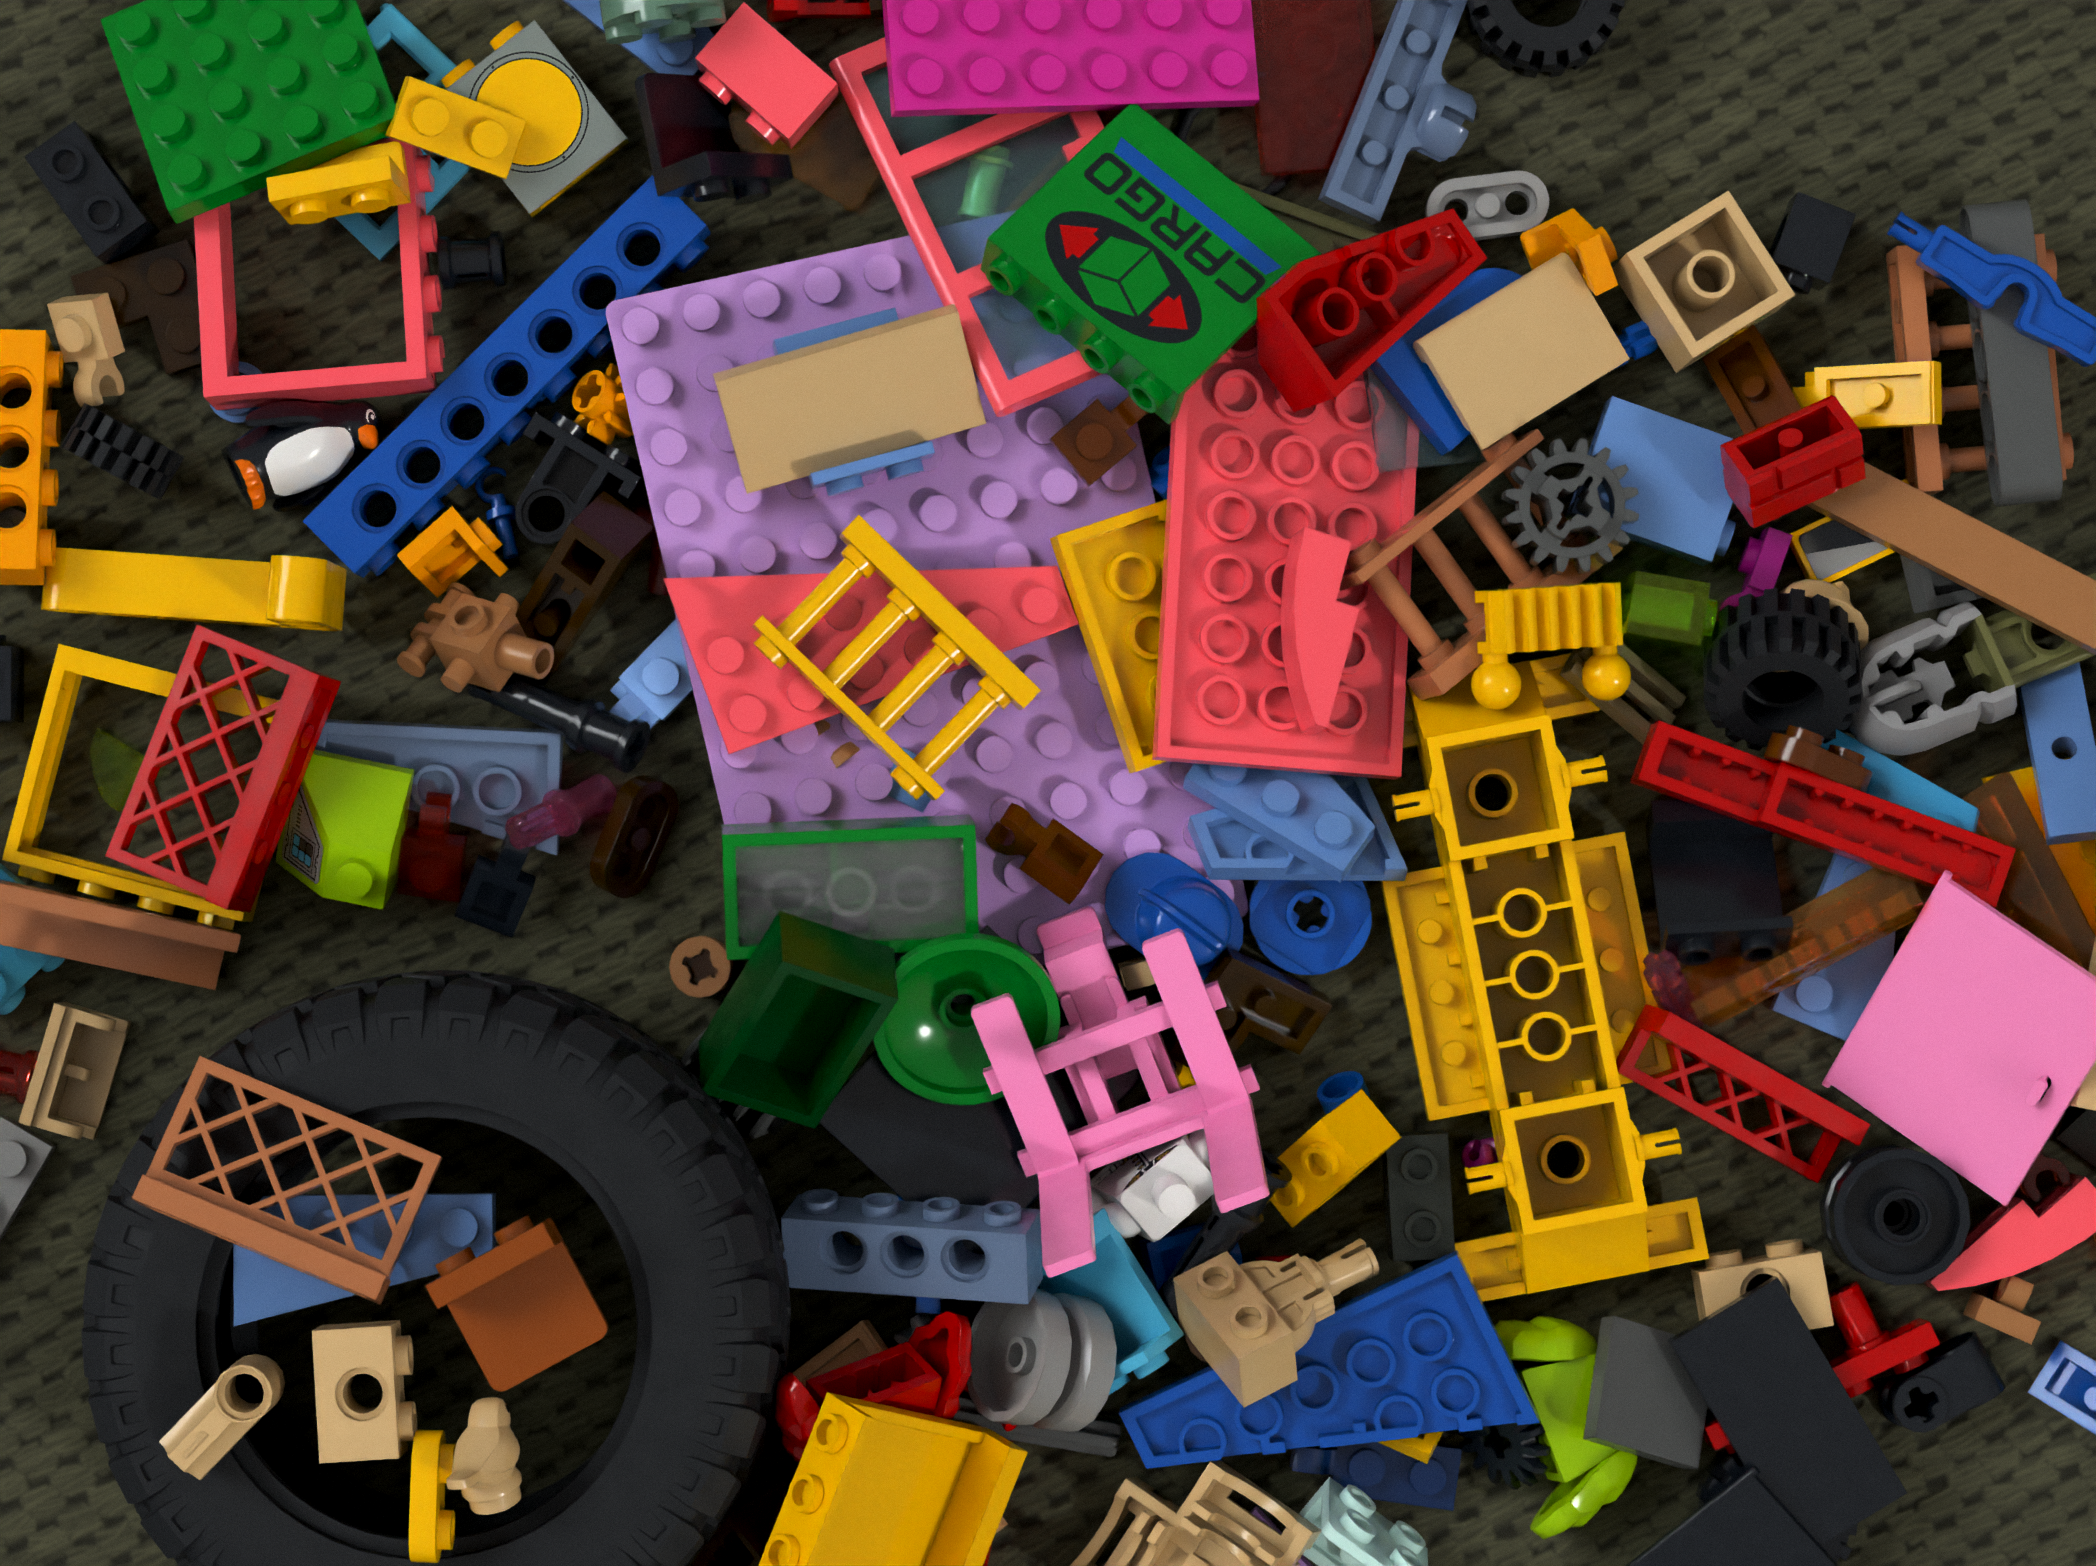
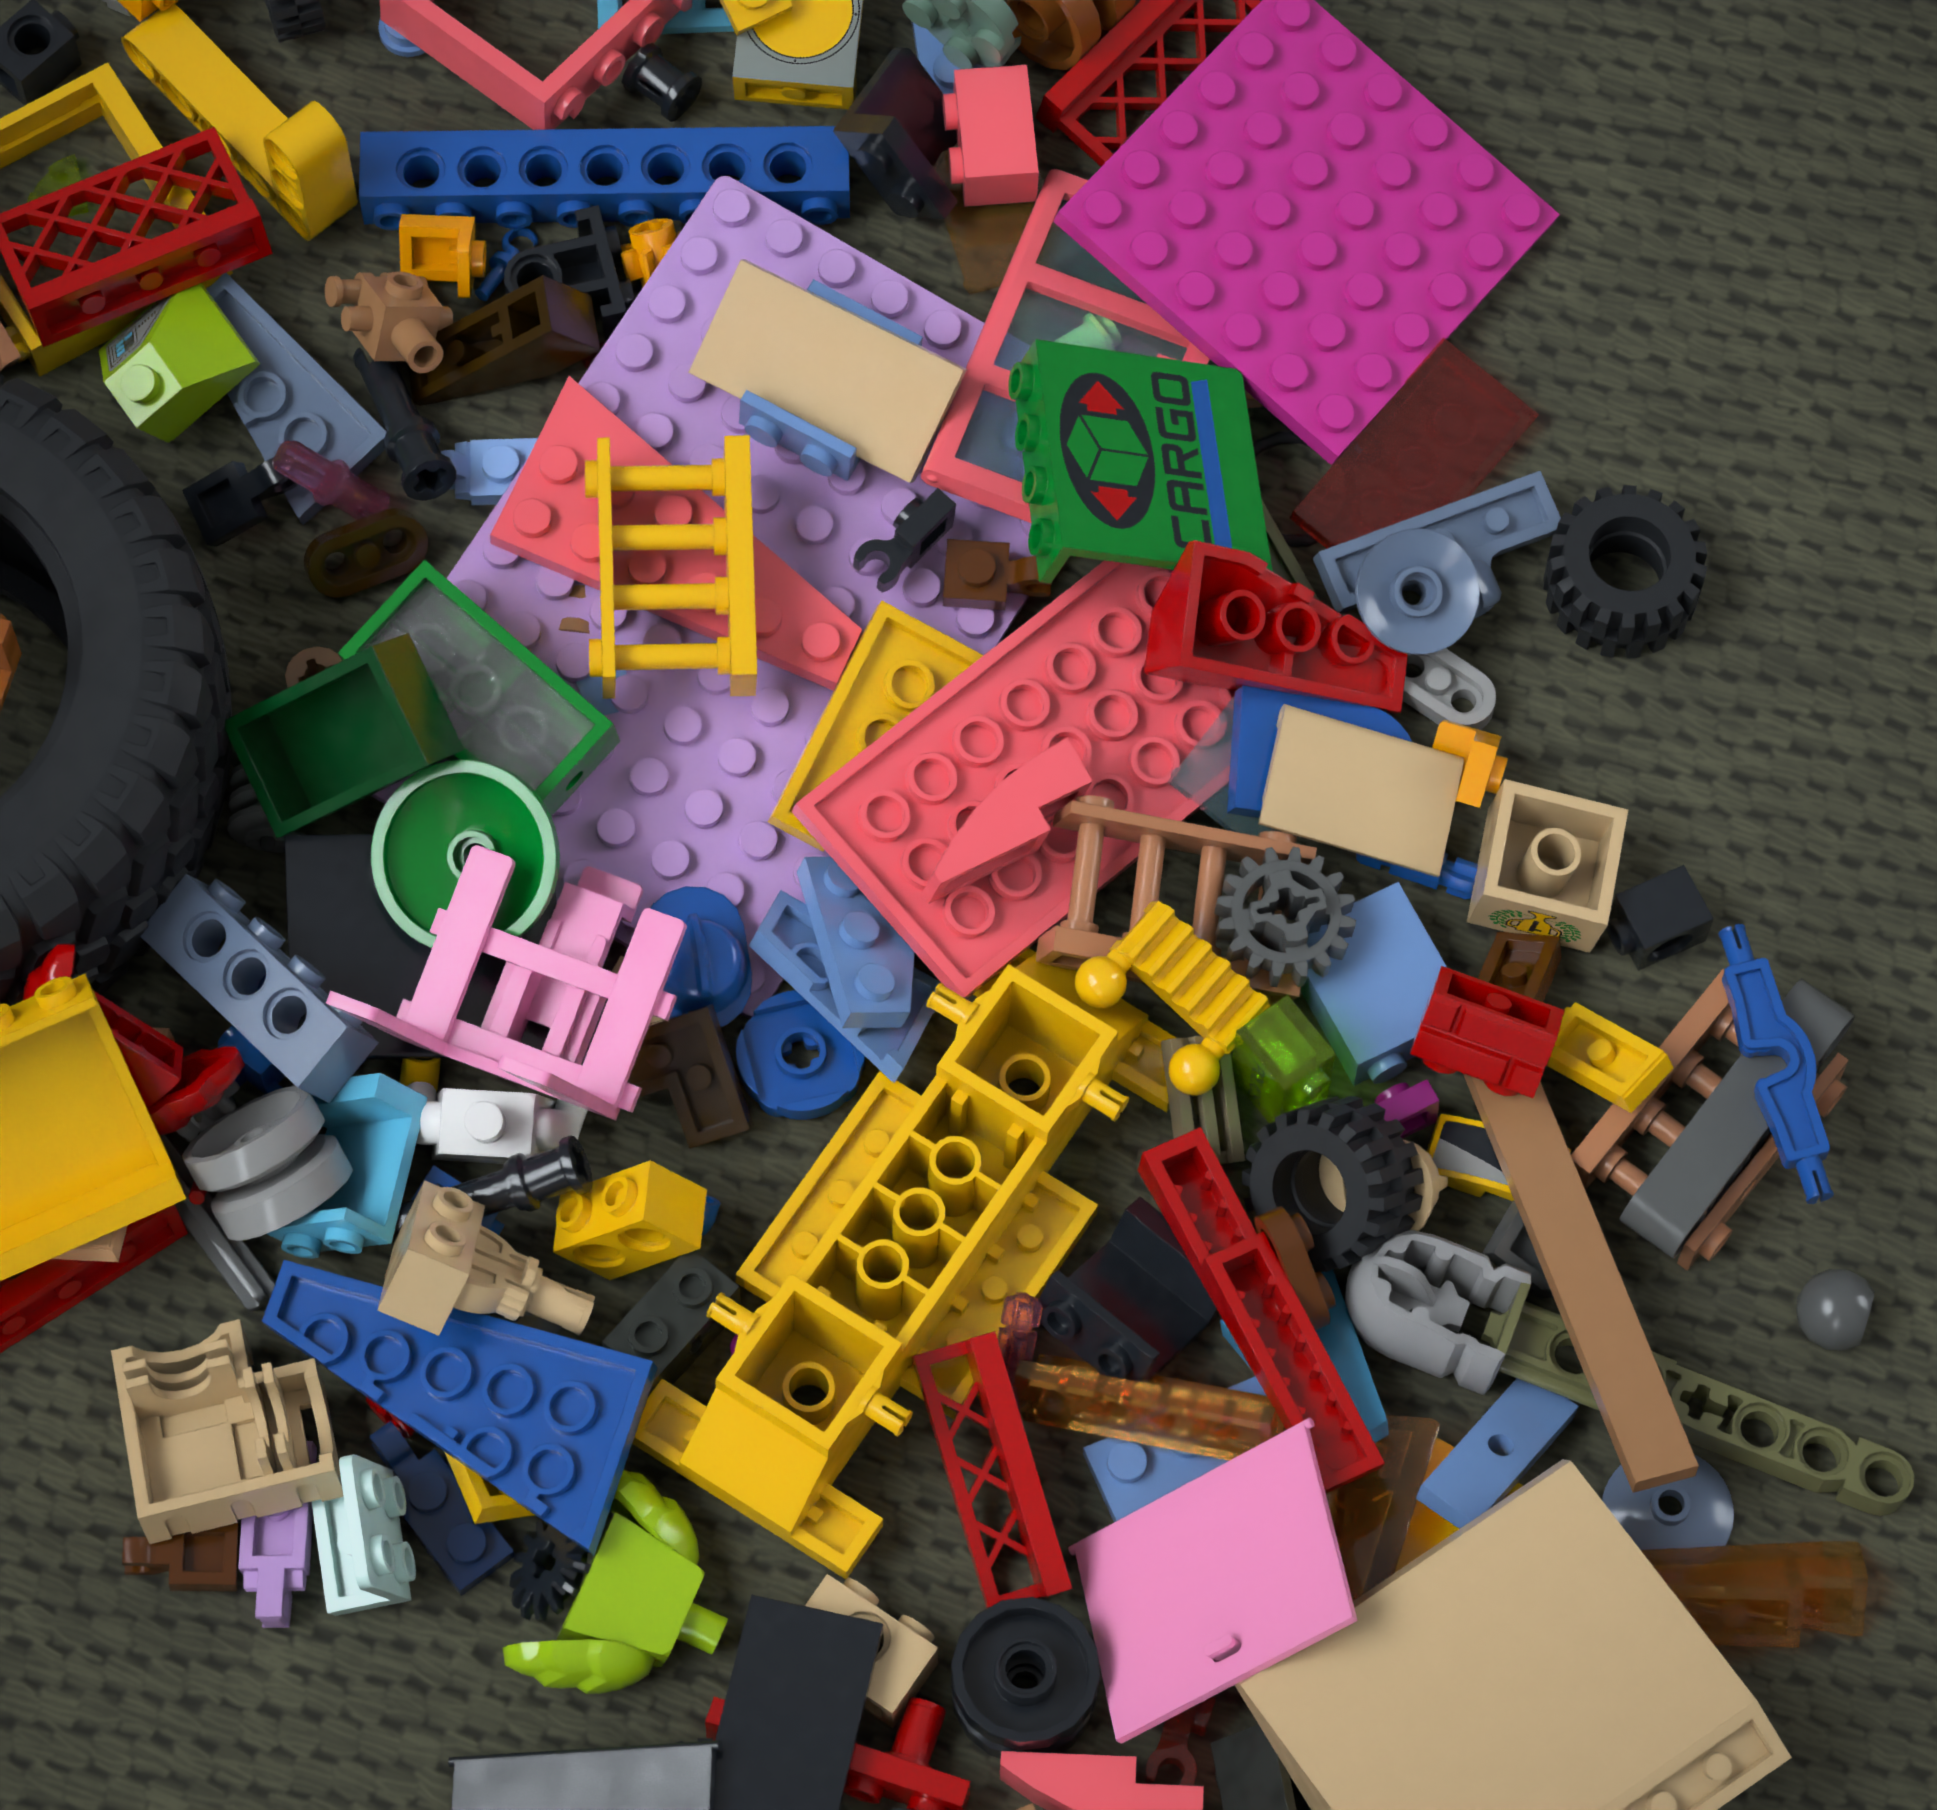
camera: 45 degrees right, 20 degrees down
(299, 449) = (409, 87): animal -> none
(431, 857) = (210, 435): clear red plate -> none
(1025, 452) = (916, 532): none -> black plate
(1052, 854) = (648, 822): reddish brown plate -> none
(1450, 155) = (1446, 585): none -> sand blue dish
(1644, 1396) = (688, 1623): dark grey tile -> none

